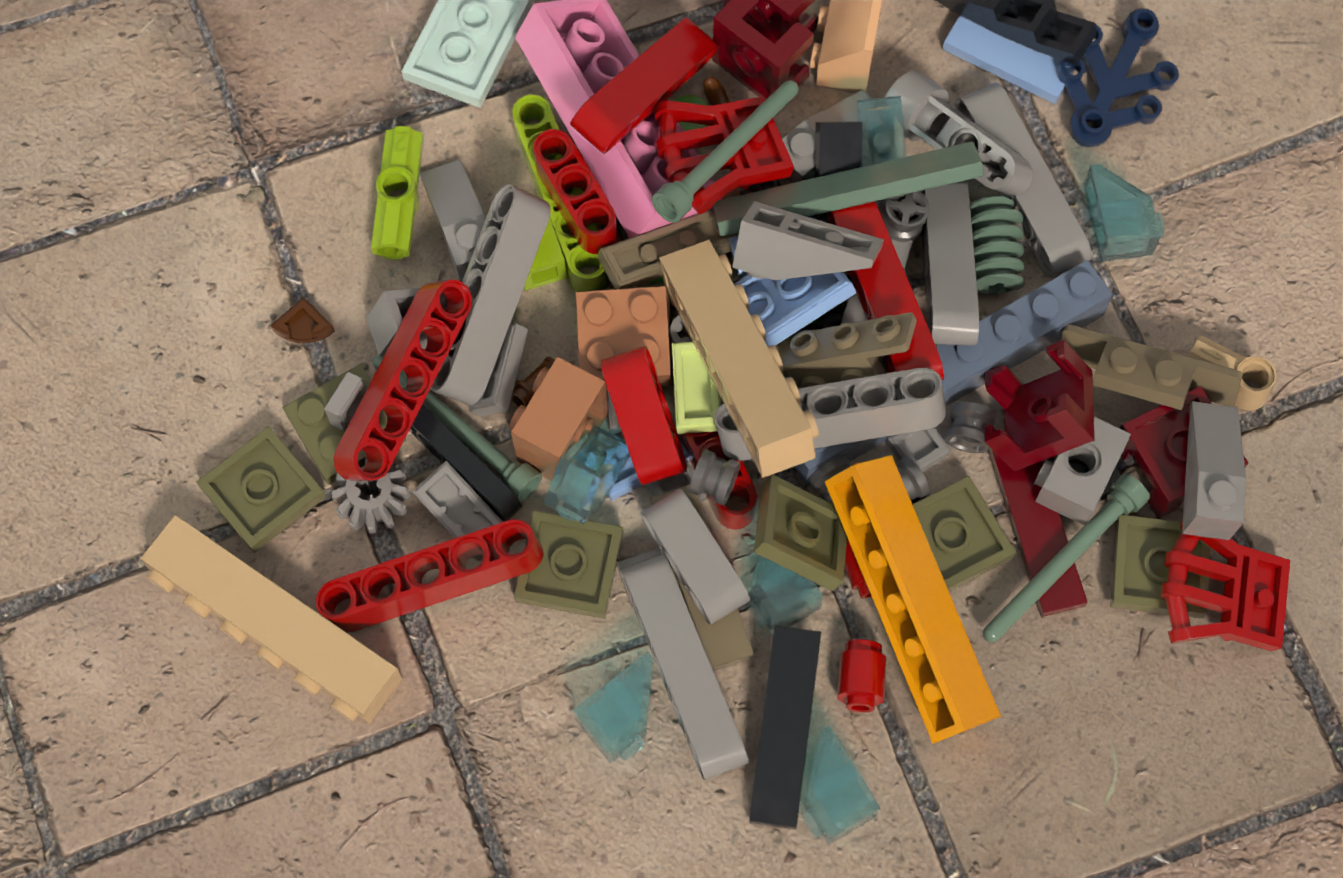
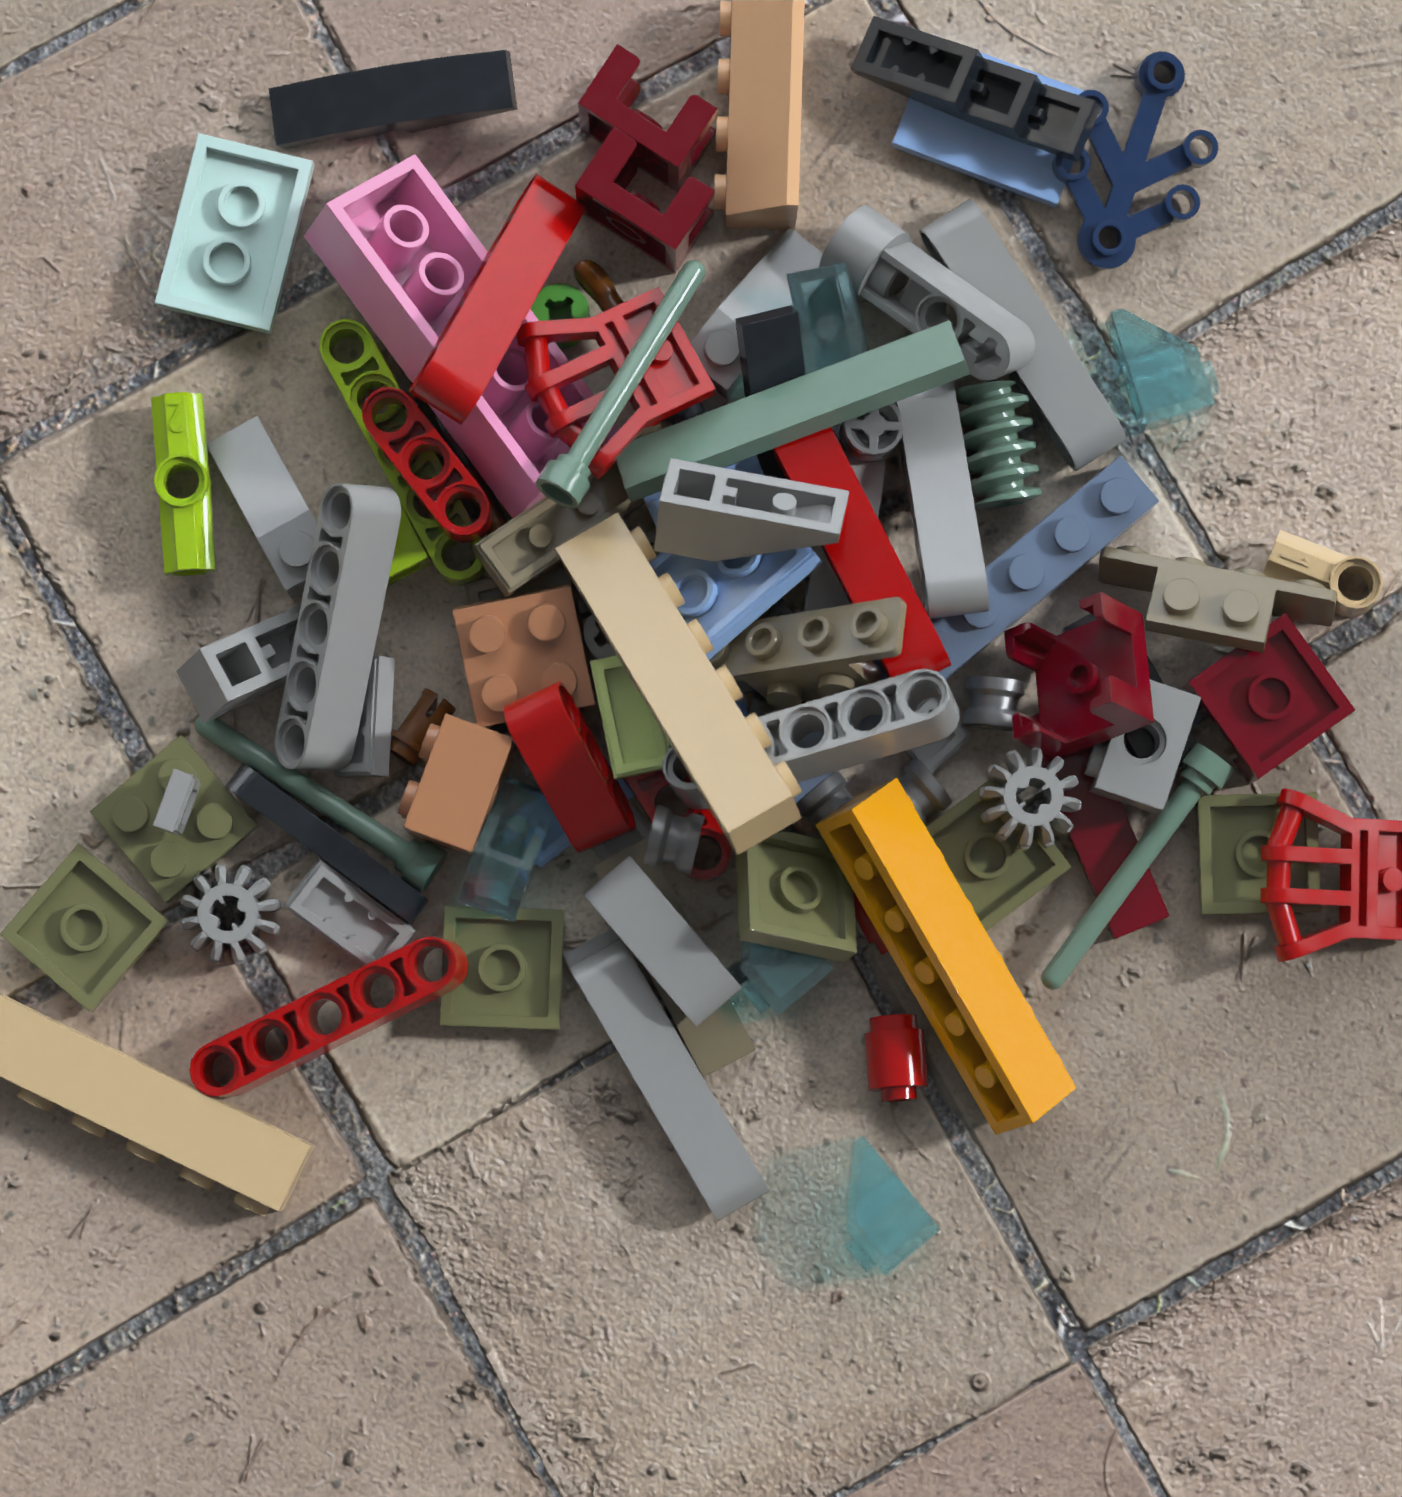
camera: 15 degrees left, 15 degrees up
(302, 324) = (91, 686): reddish brown tile -> none
(385, 389) = (227, 792): red beam -> none
(619, 711) = (600, 1152): clear light blue slope -> none
(785, 727) = (808, 1139): black slope -> none
(972, 489) = (1016, 781): none -> light grey gear
(1214, 472) = (1310, 731): light grey slope -> none

